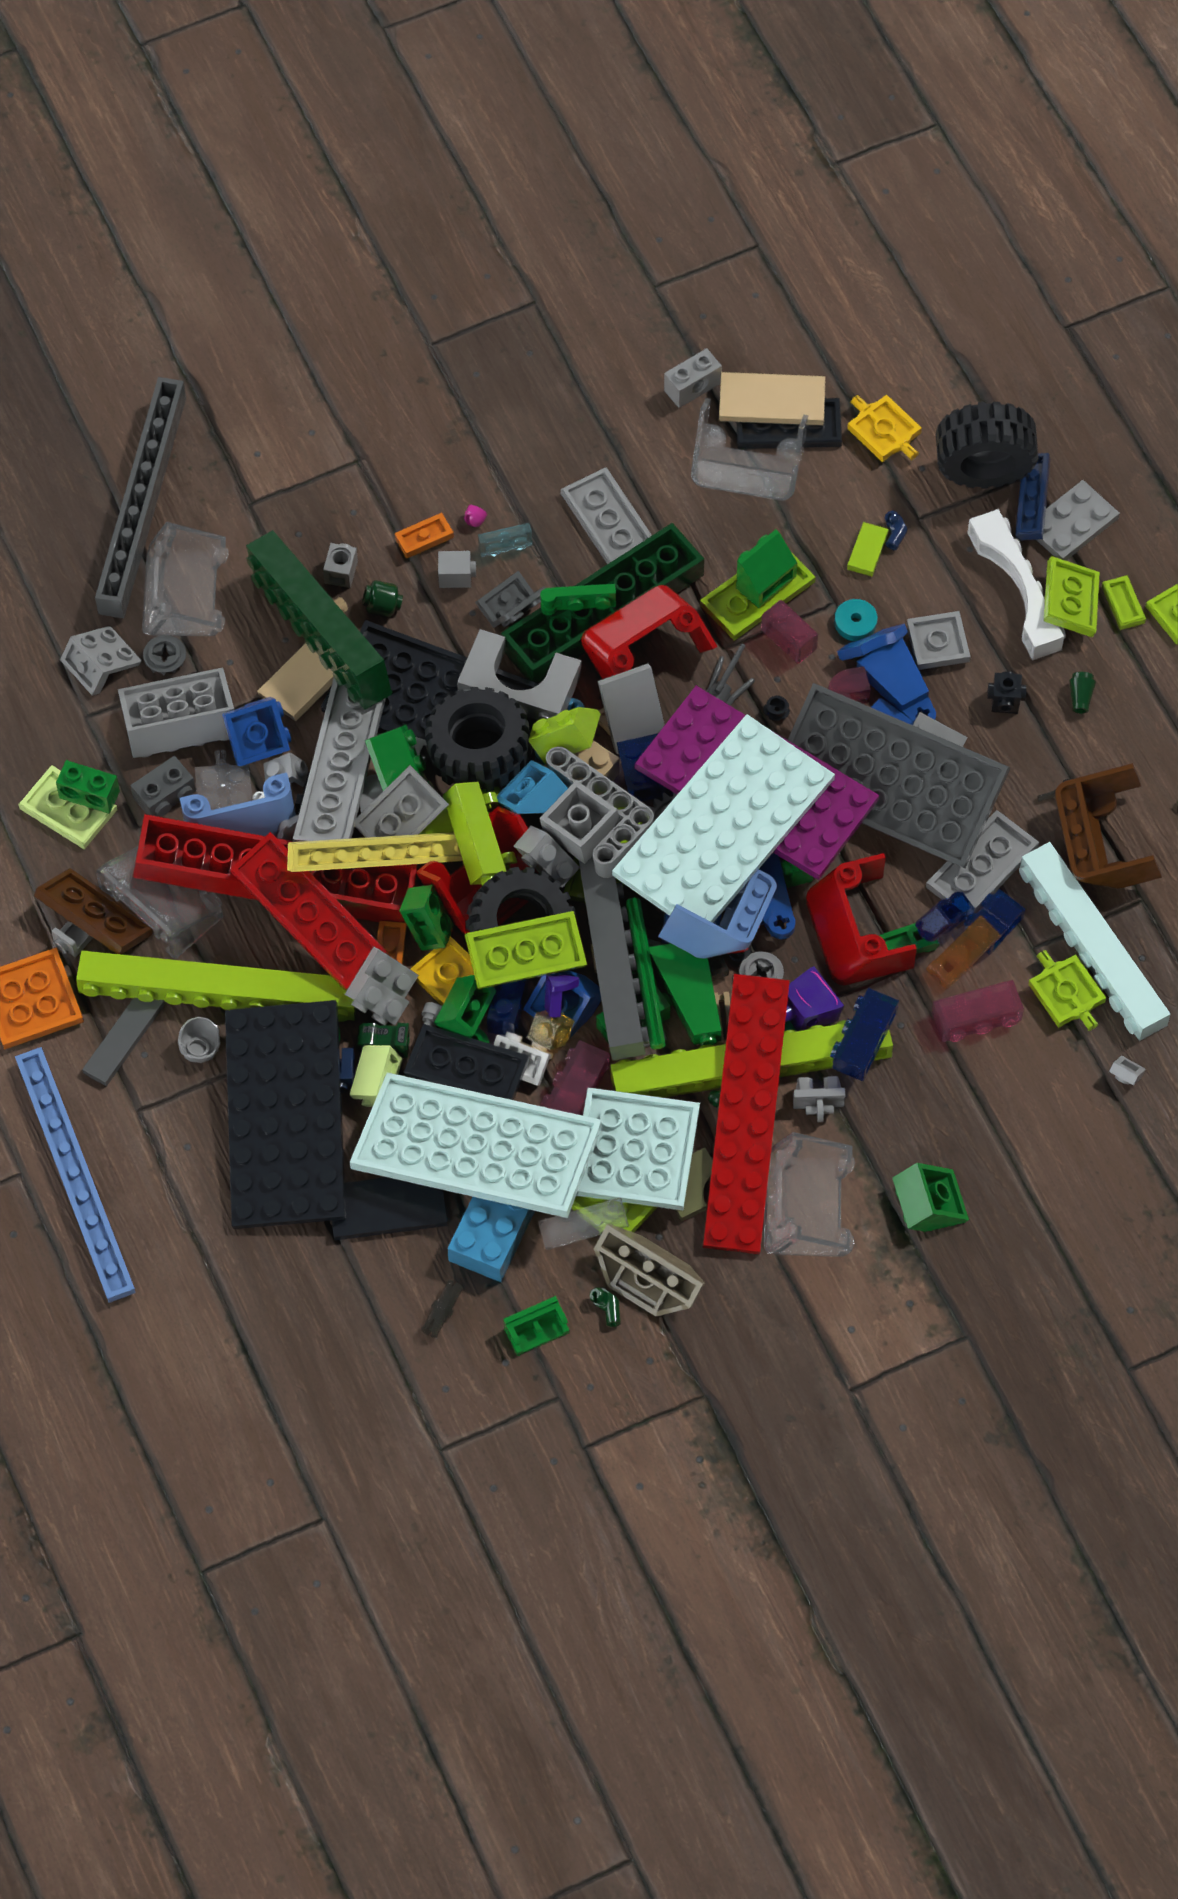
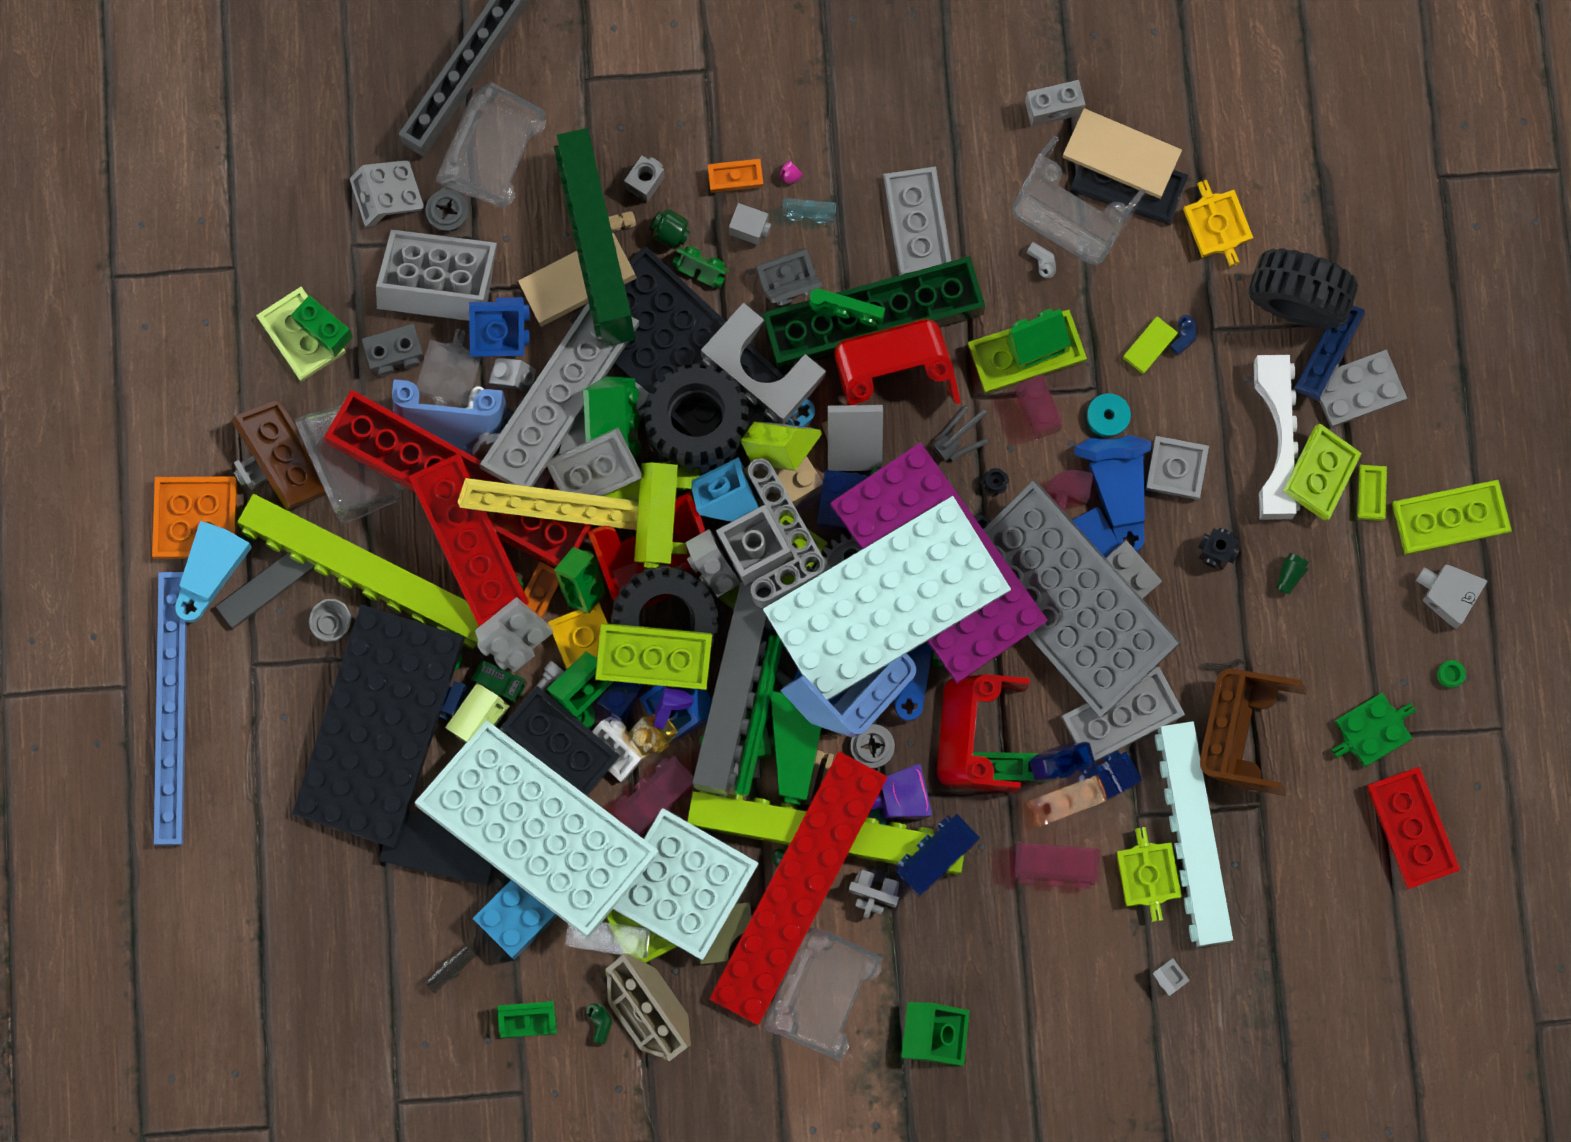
camera: 20 degrees right, 15 degrees up
(64, 1028) = (208, 568): none -> medium azure piece
(434, 621) = (710, 269): none -> green hinge
(740, 510) = (1045, 259): none -> light grey arm

